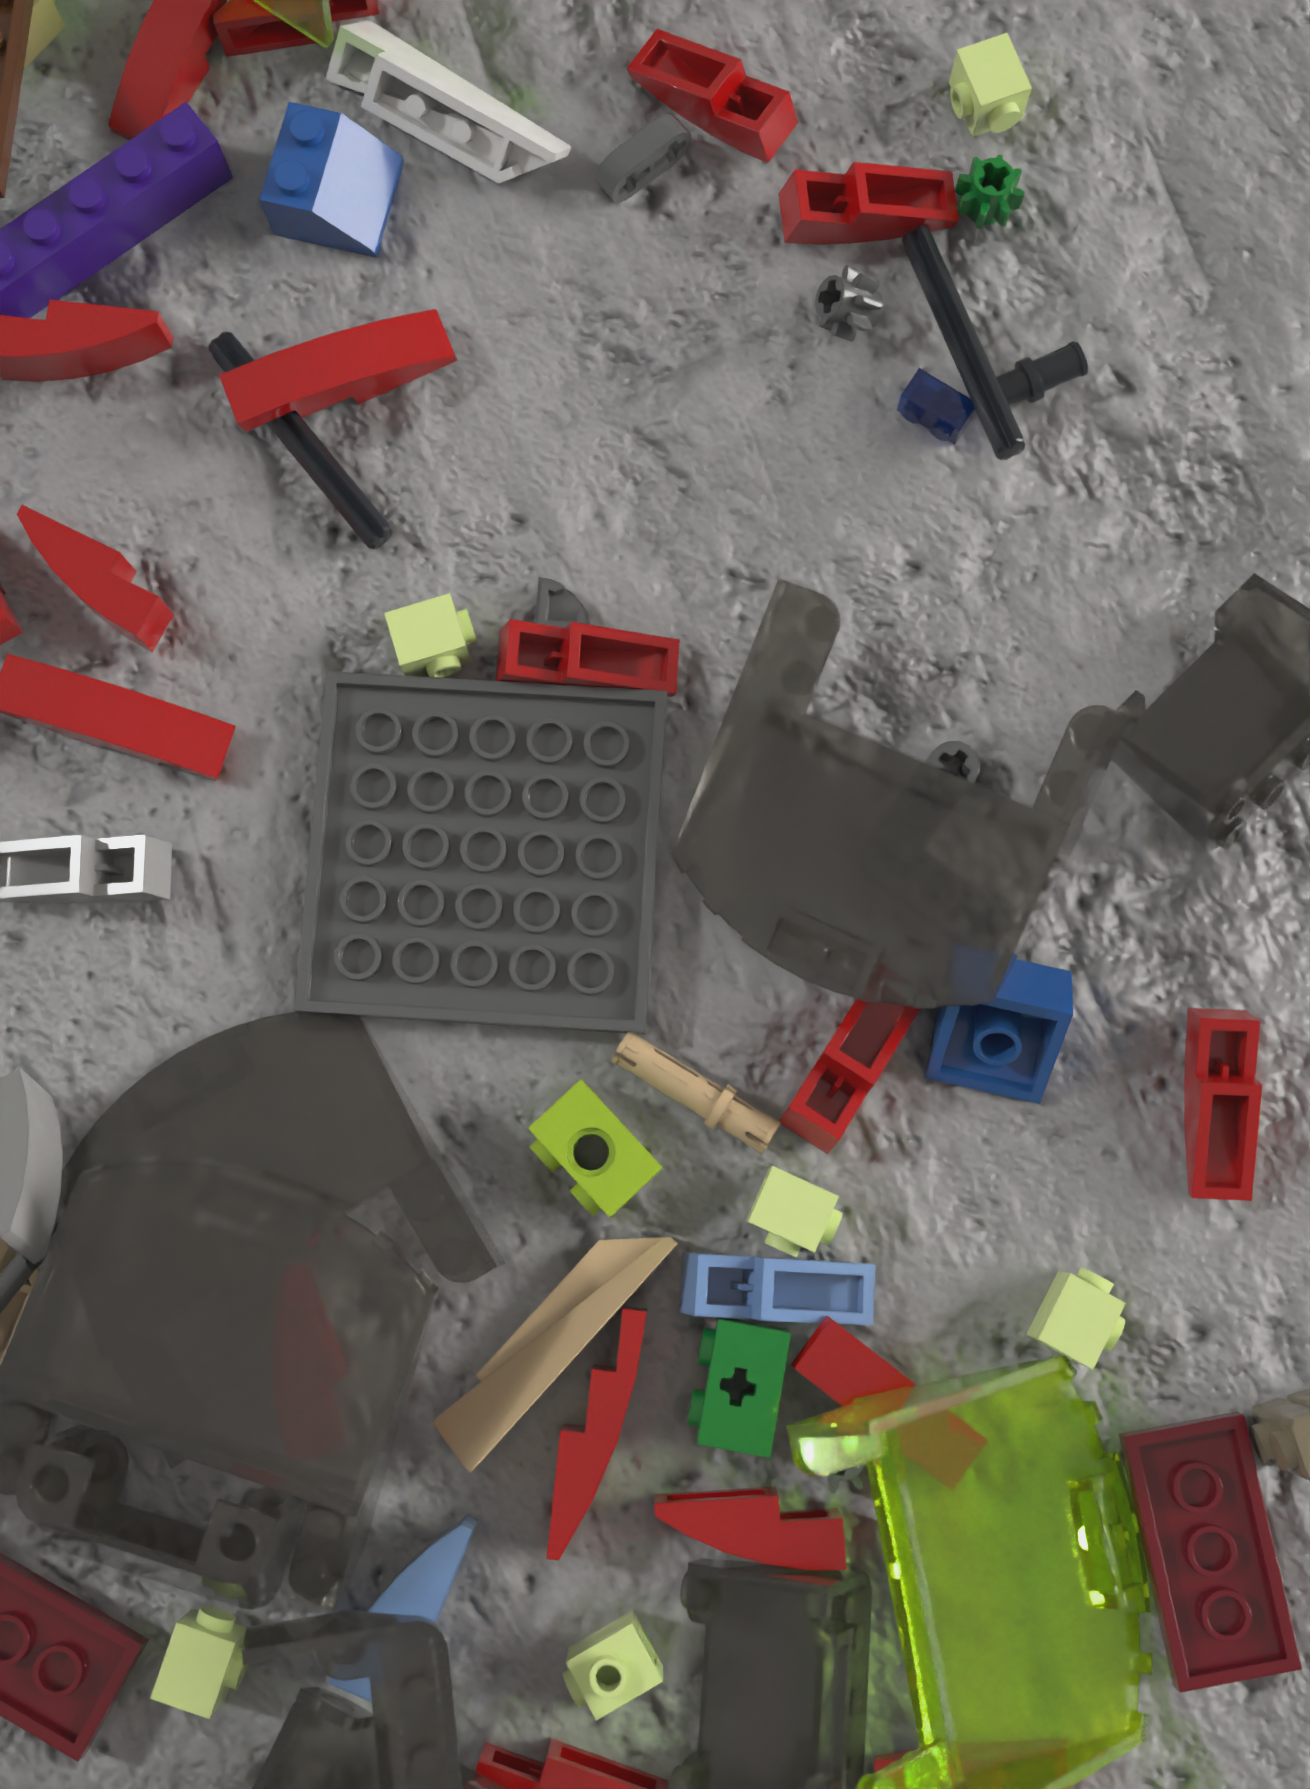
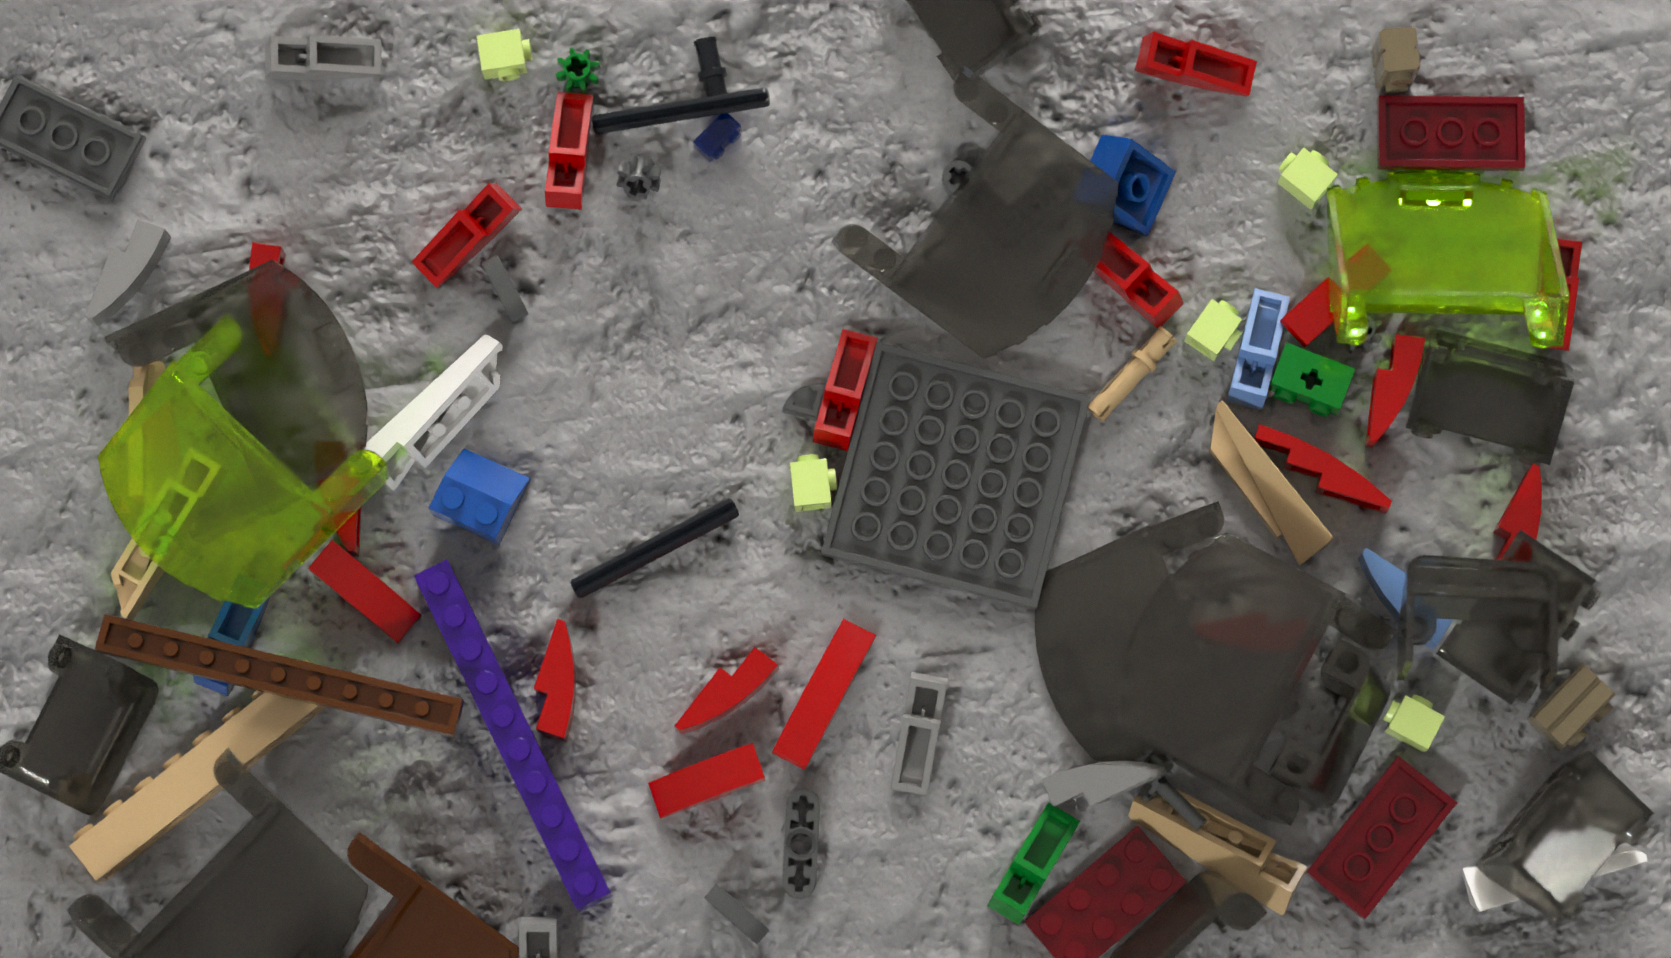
camera: 80 degrees left, 0 degrees up
(337, 366) = (614, 511): red slope -> none
(582, 1115) = (1168, 422): lime brick -> none
(612, 1666) = (1456, 485): yellowish green brick -> none

